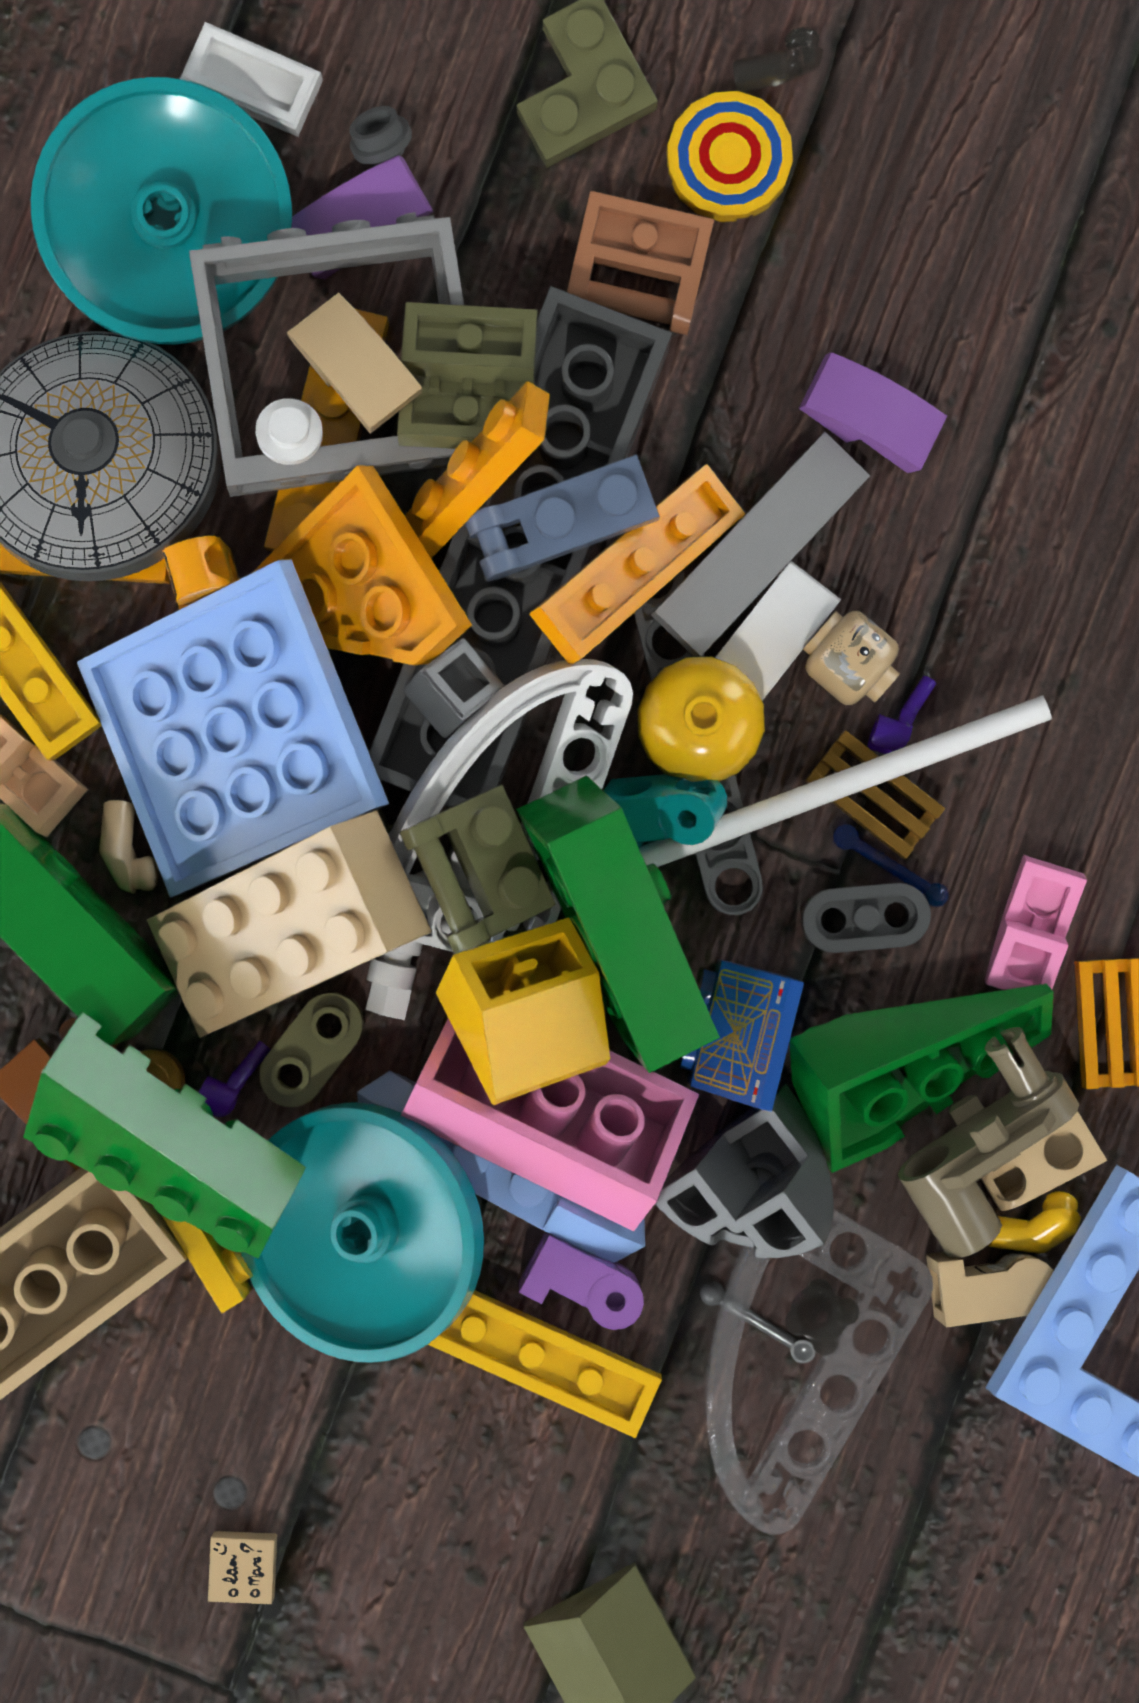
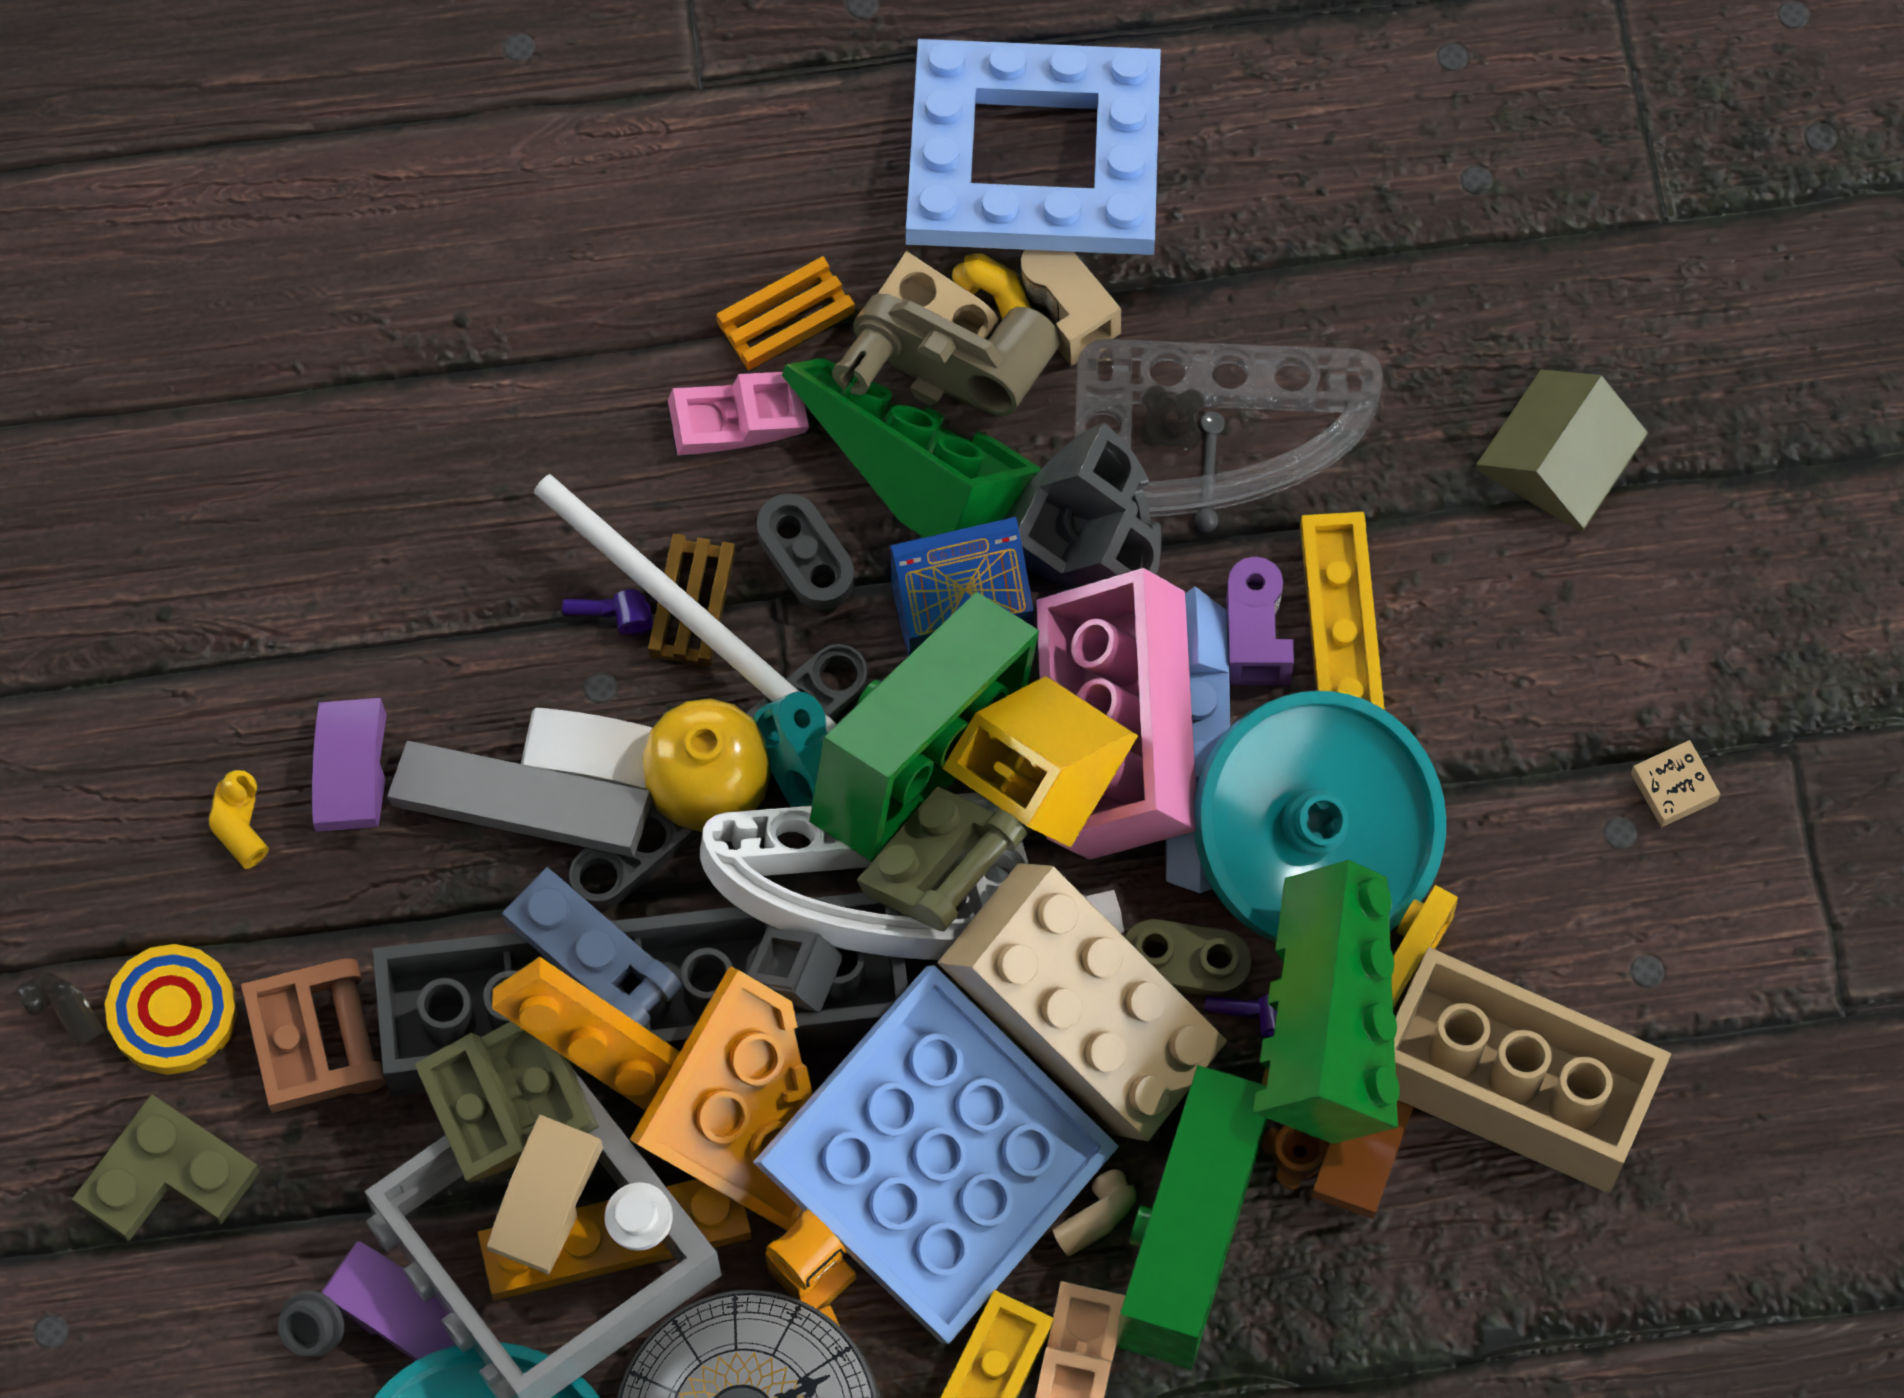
camera: 120 degrees left, 20 degrees down
(637, 566) = (609, 877): light orange plate -> none
(847, 837) = (742, 605): clear blue hinge -> none
(852, 658) = (581, 669): tan head -> none
(878, 290) = (232, 815): none -> yellow arm

